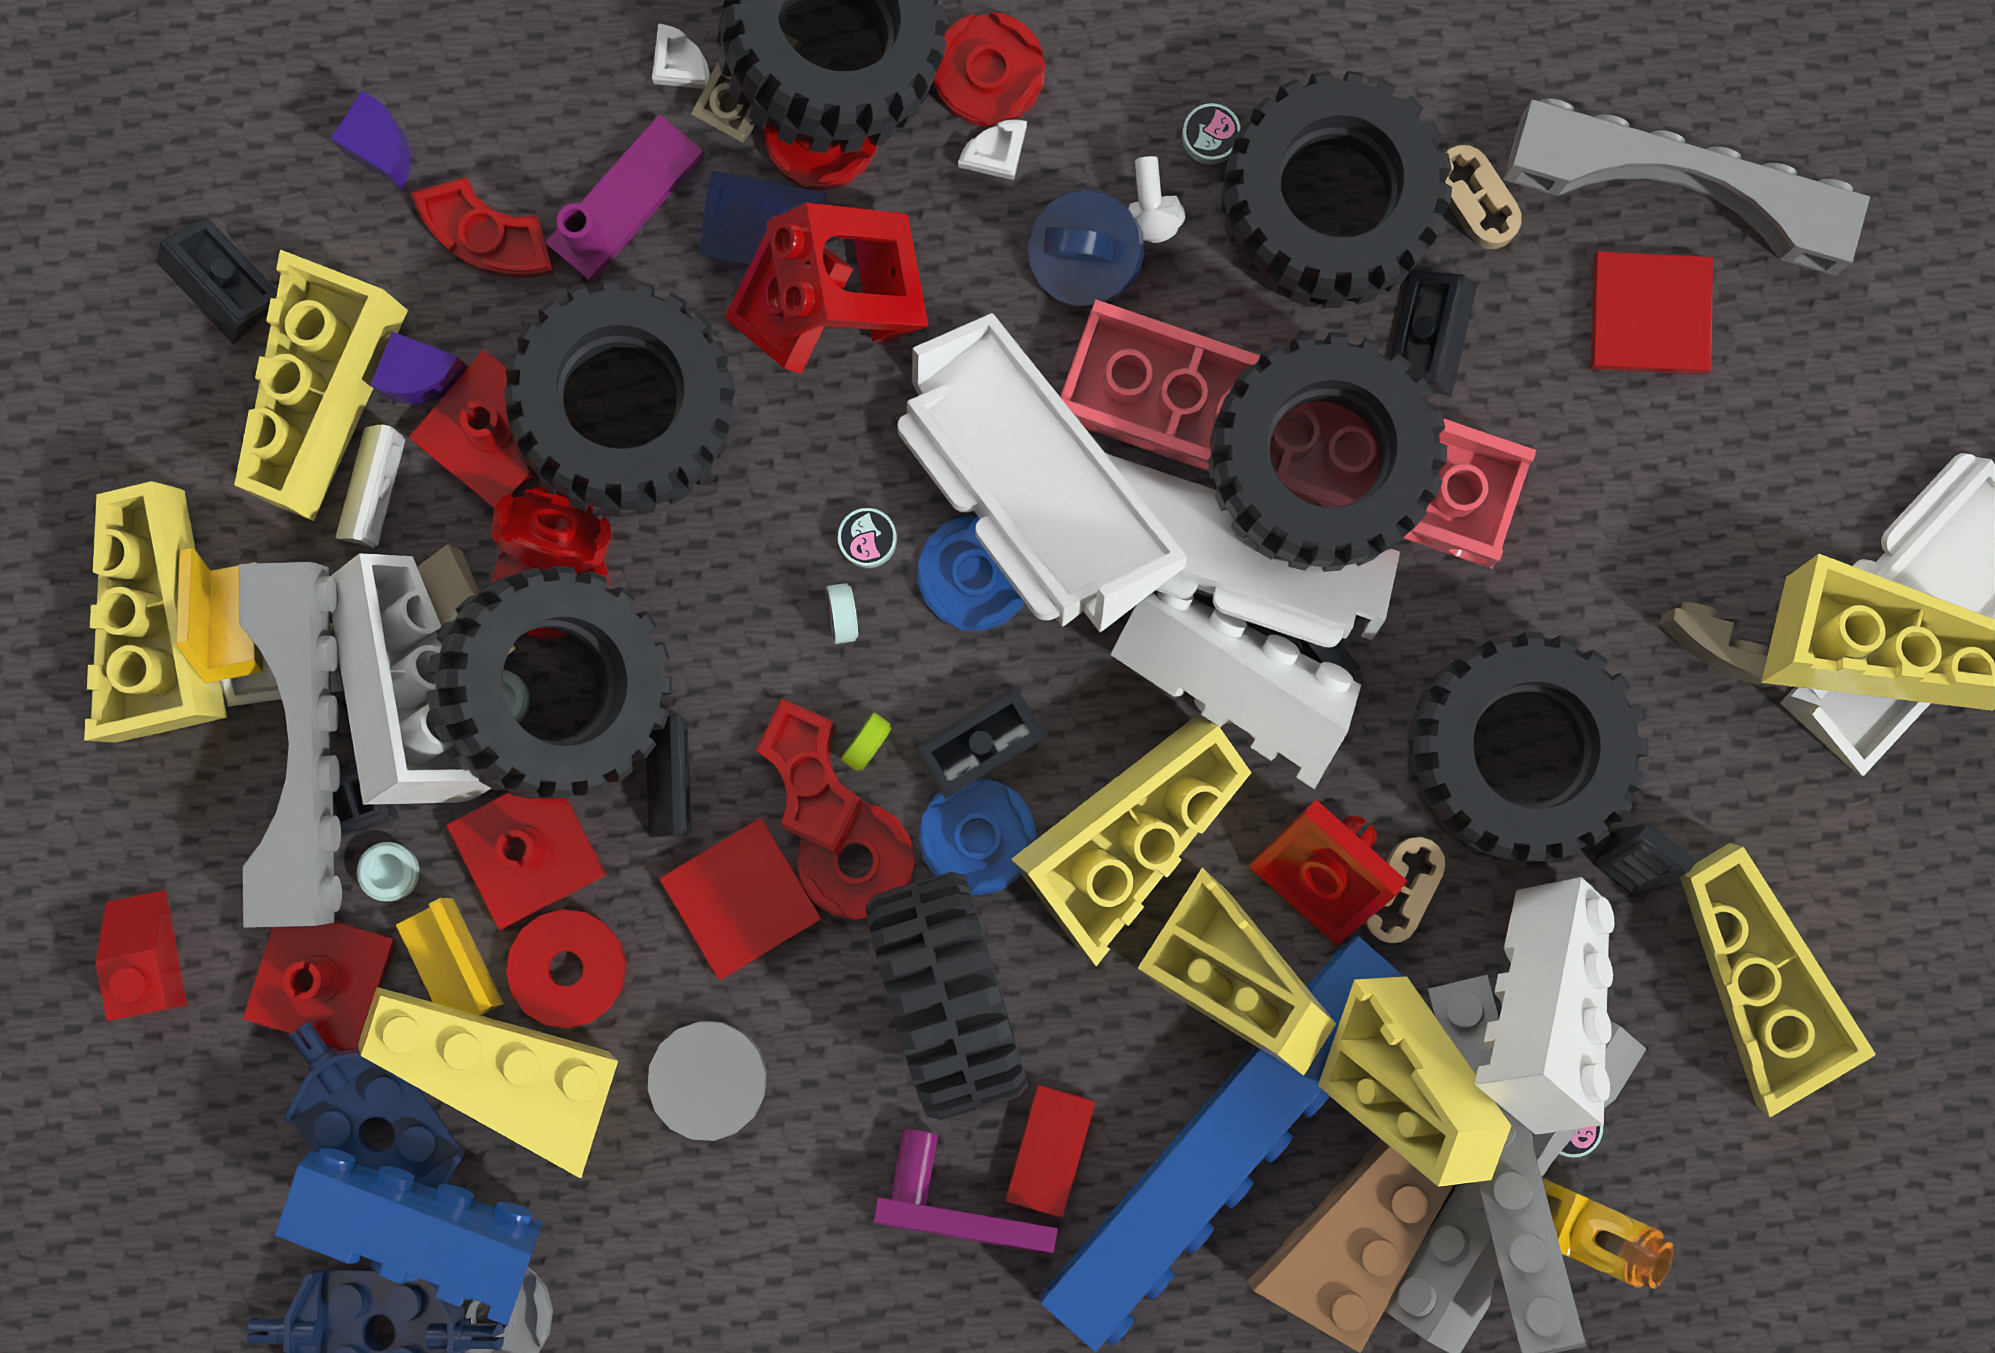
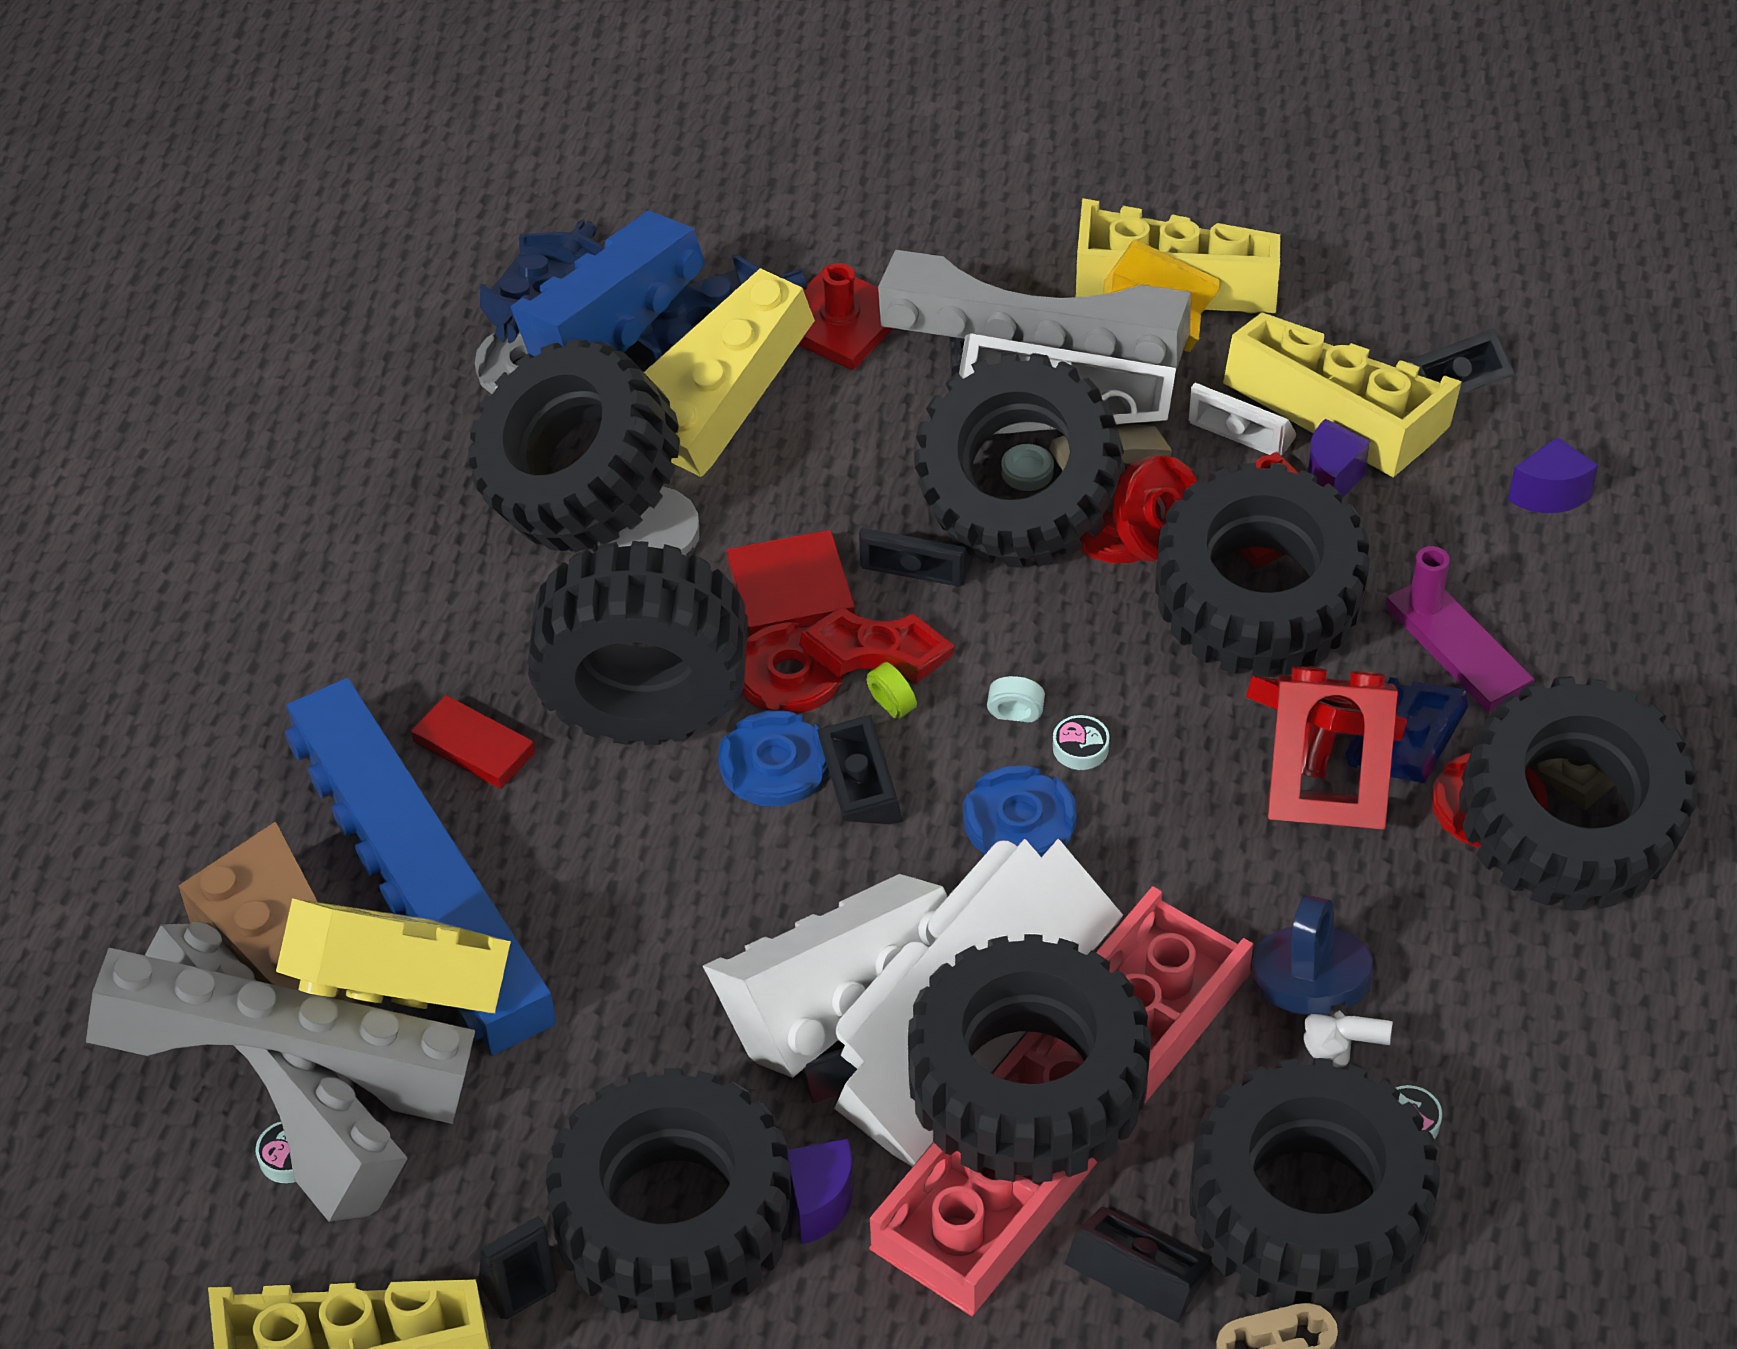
camera: 110 degrees right, 35 degrees down
(139, 958) = (898, 213): red slope -> none
(388, 871) = (909, 372): light aqua tile -> none
(449, 959) = (818, 392): yellow panel -> none
(481, 235) = (1461, 533): red tile -> none
(525, 854) = (879, 455): red tile -> none
(531, 973) = (781, 484): red tile -> none
(708, 1239) = (534, 413): none -> black tyre
(909, 1209) = (466, 624): magenta piece -> none
(982, 86) = (1520, 962): red tile -> none
(995, 149) = (1437, 932): white tile -> none
(1043, 488) = (1088, 834): white slope -> none
(1130, 834) = (718, 833): light yellow wedge -> none
(1233, 974) = (557, 880): light yellow wedge -> none
(1329, 871) = (627, 998): red tile -> none
(1417, 895) = (586, 1061): tan beam -> none
(1463, 622) = (821, 1187): none -> dark purple brick
(1553, 1010) = (407, 1098): white wedge -> none
(1608, 1238) = (207, 1095): yellow plate -> none

